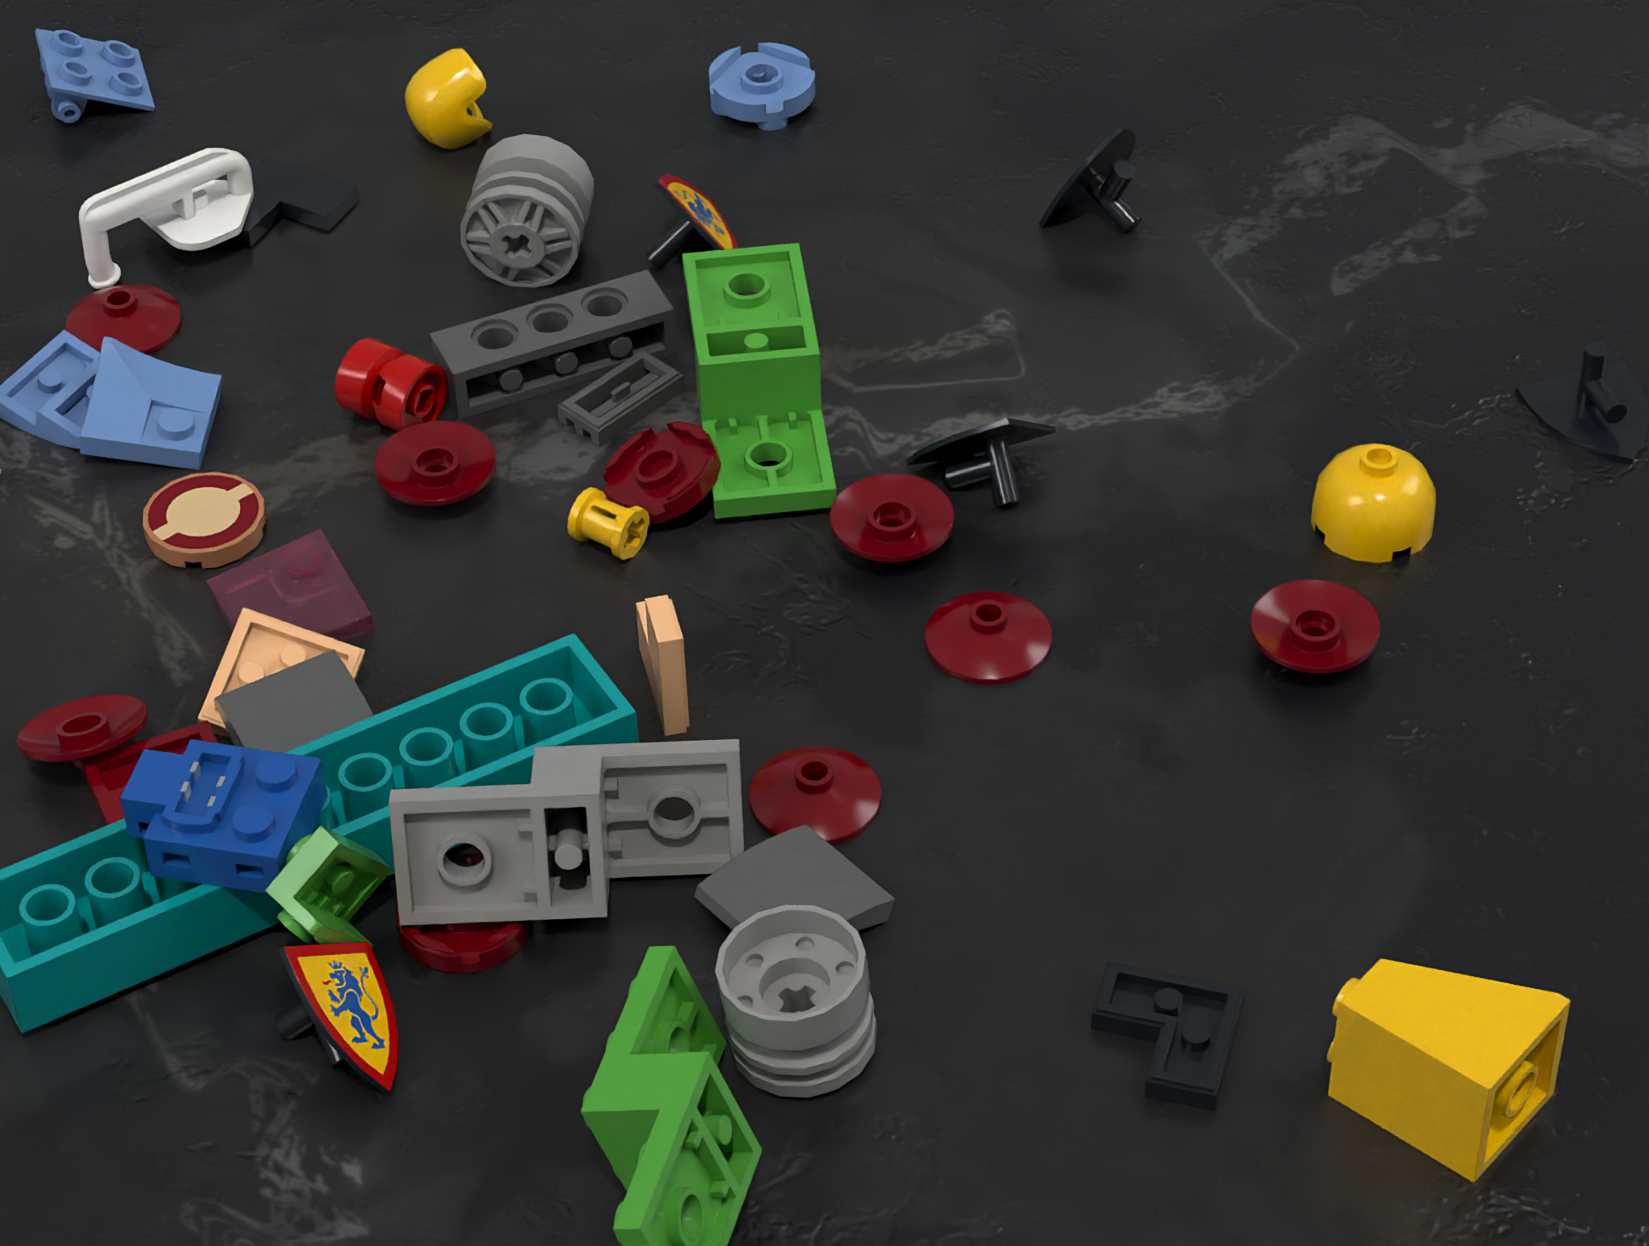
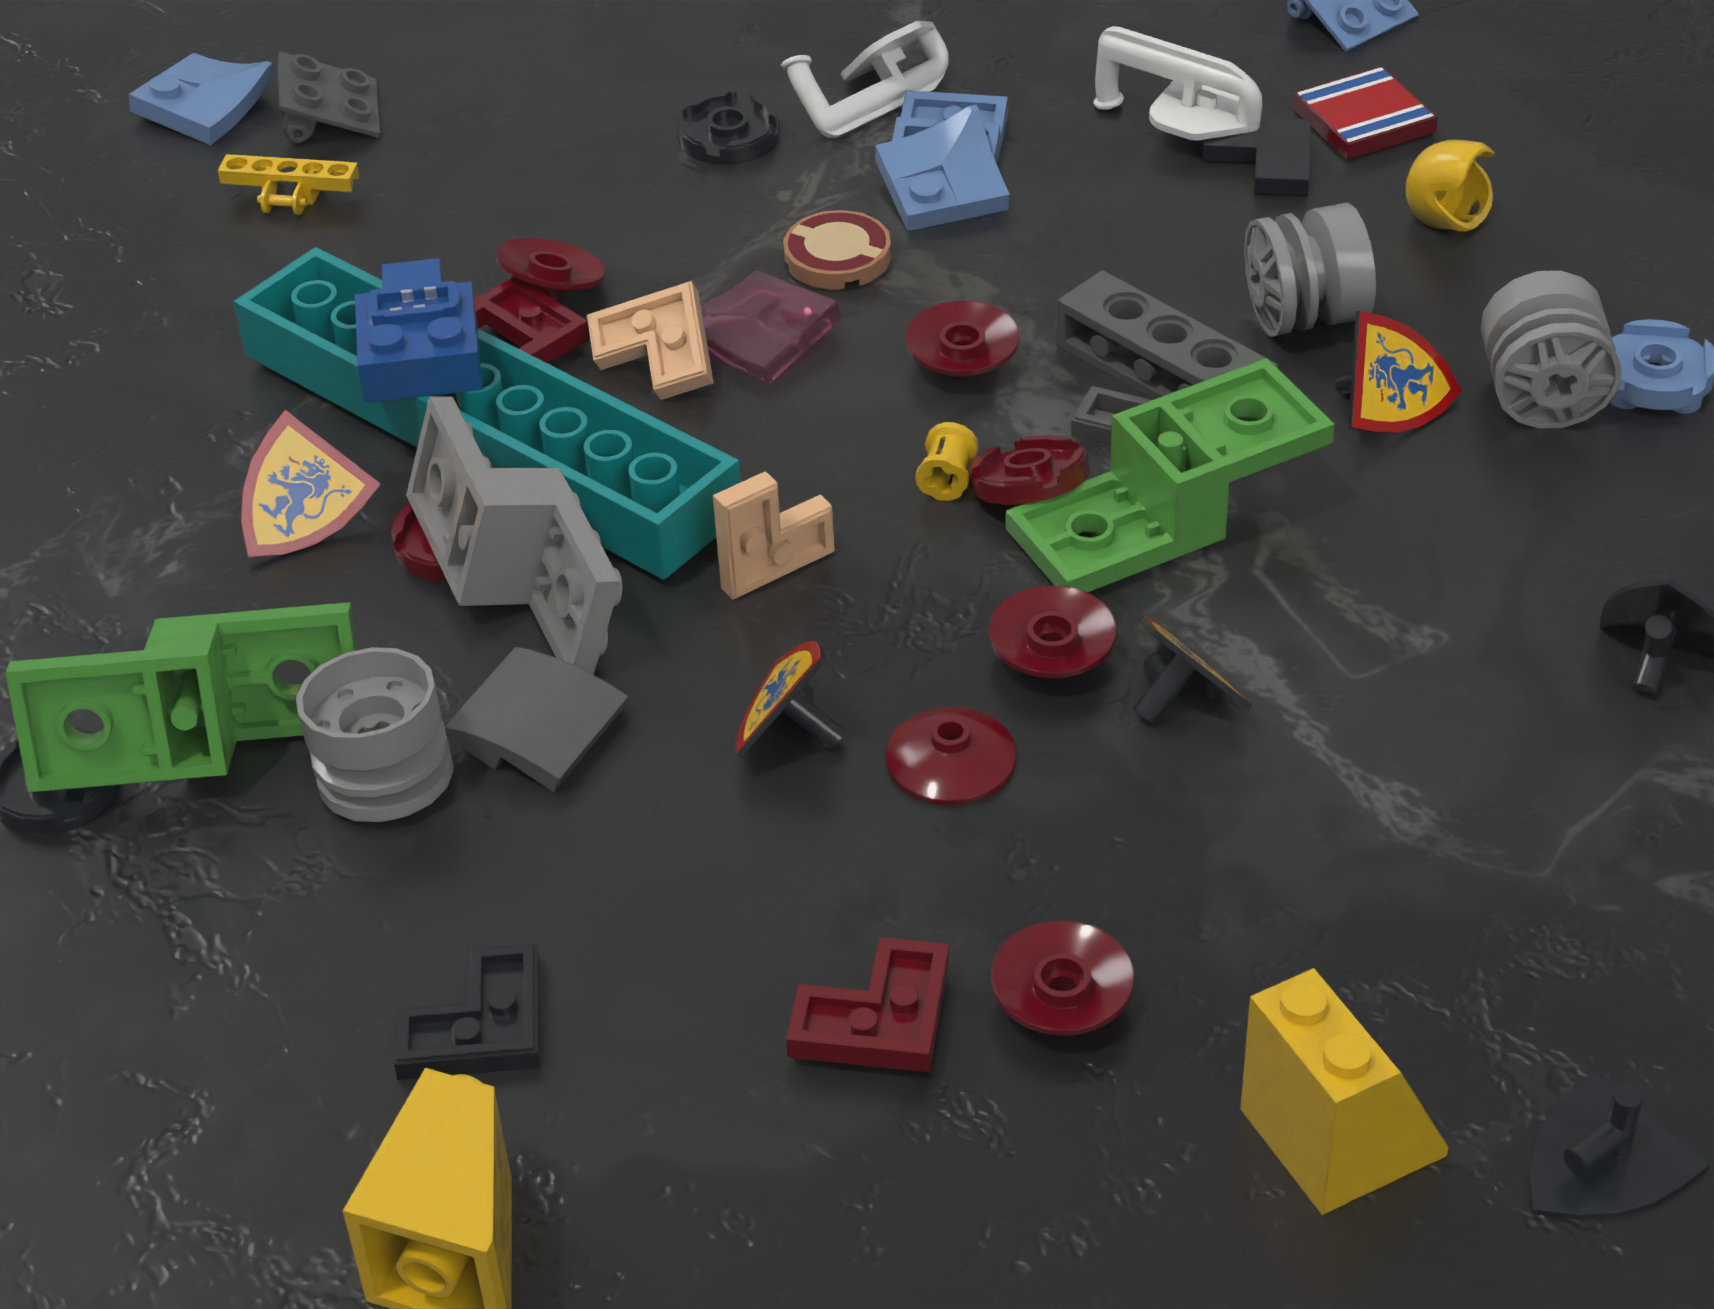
camera: 70 degrees right, 0 degrees up
(130, 313) = (1060, 131): dark red dish -> none
(274, 123) = (1365, 112): none -> tile
(293, 705) = (614, 357): dark grey slope -> none
(326, 886) = (374, 426): bright green bracket -> none
(389, 385) = (1038, 273): red wheel -> none
(737, 116) = (1550, 349): none -> light grey wheel
(816, 788) = (686, 700): dark red dish -> none
(883, 703) = (788, 692): none -> shield
(1307, 750) = (879, 1027): none -> dark red plate
(1374, 503) = (1283, 949): yellow cylinder -> none
(1529, 498) = (1330, 1096): none -> yellow slope

